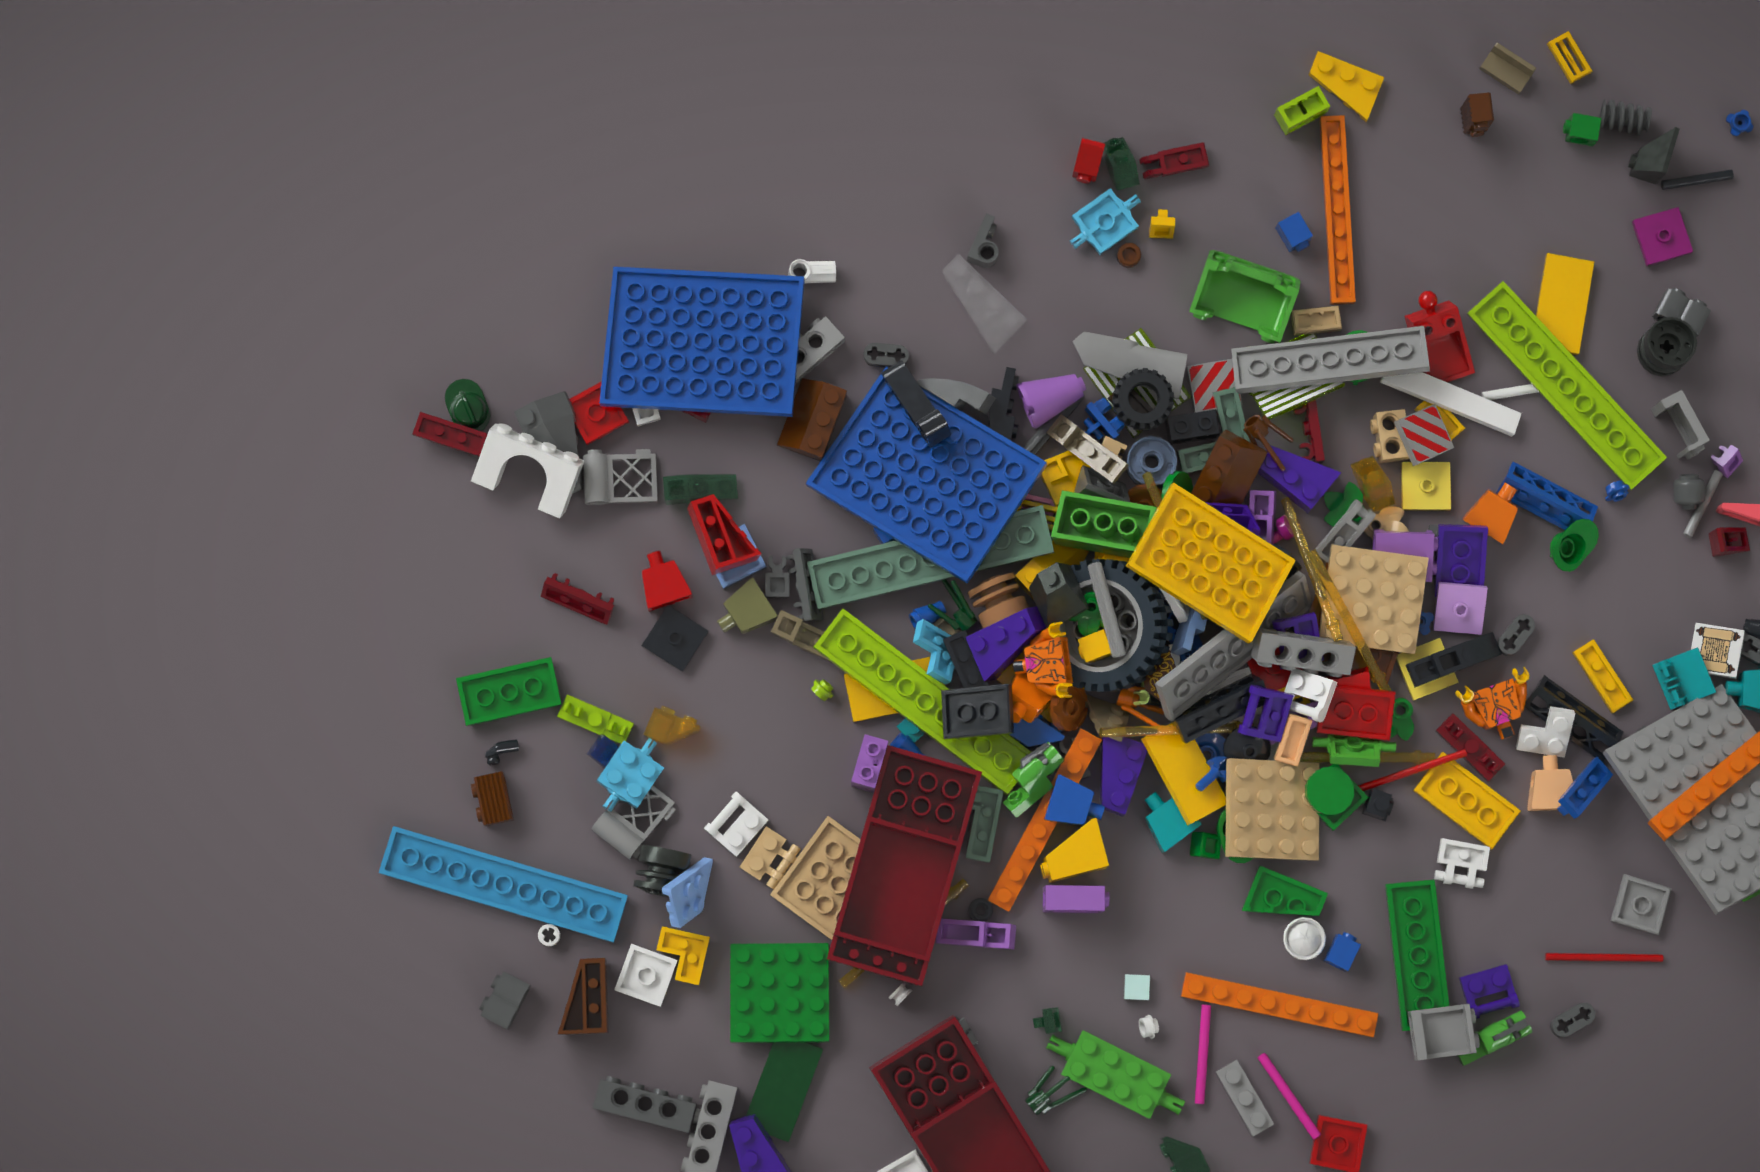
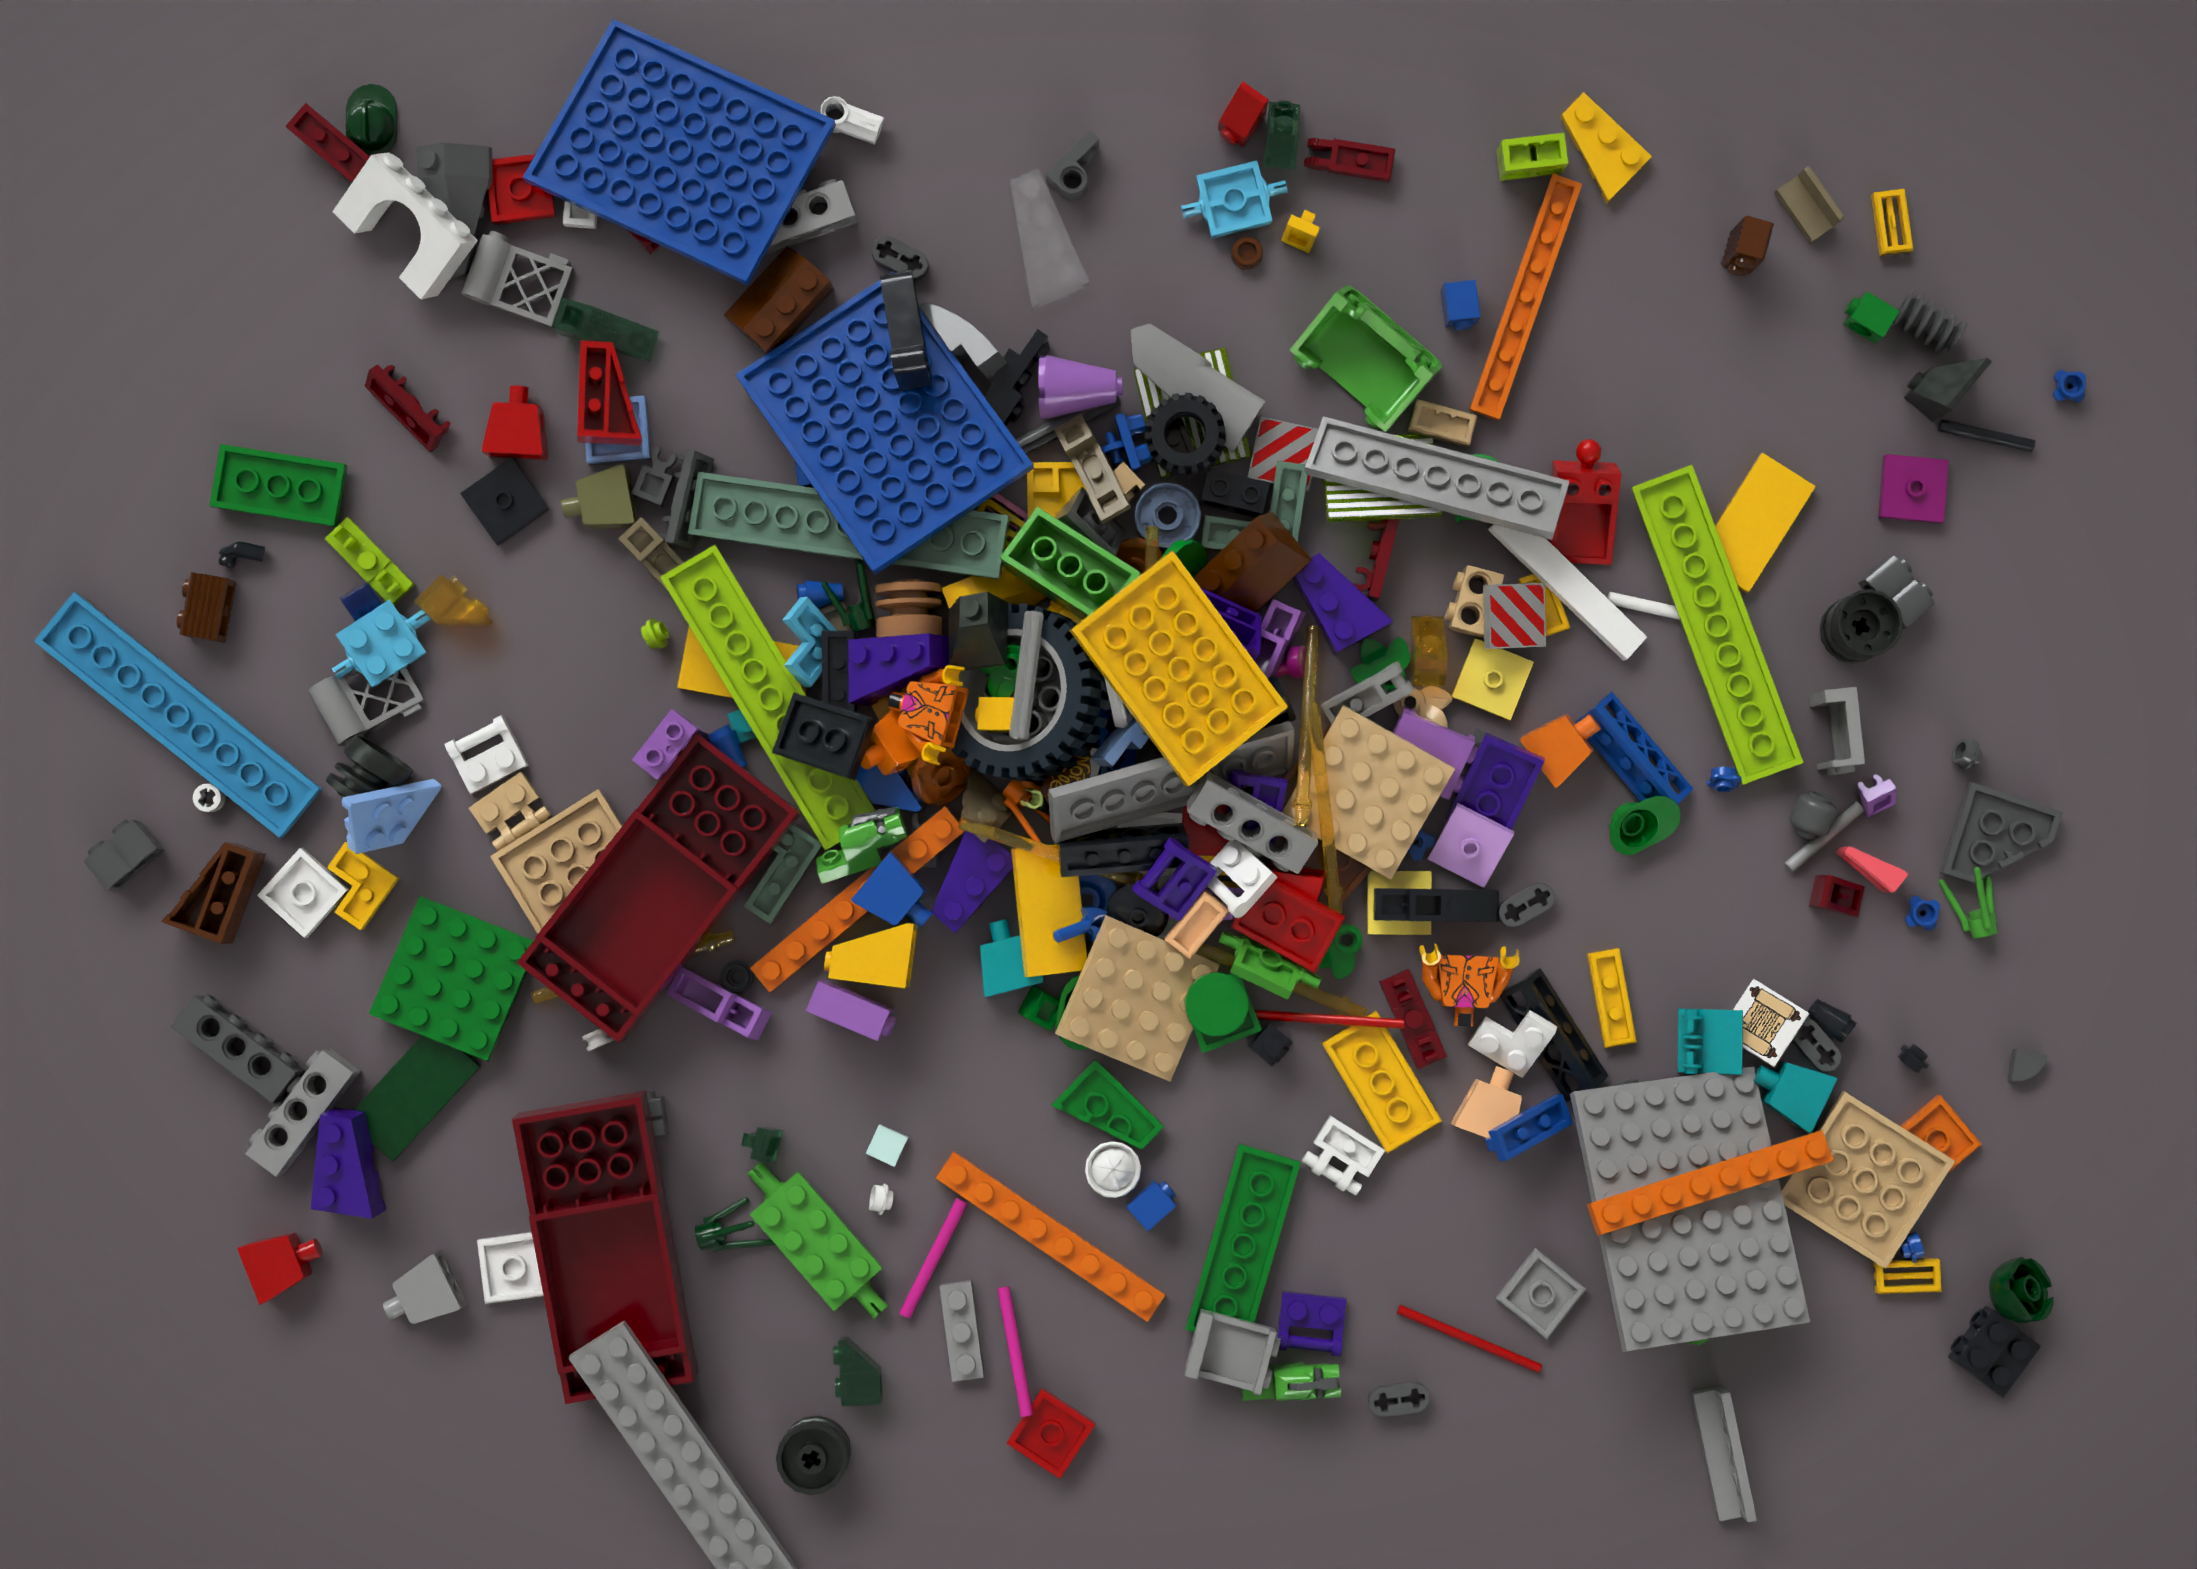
camera: 30 degrees right, 5 degrees up
(1257, 428) = (1310, 527): reddish brown plant -> none

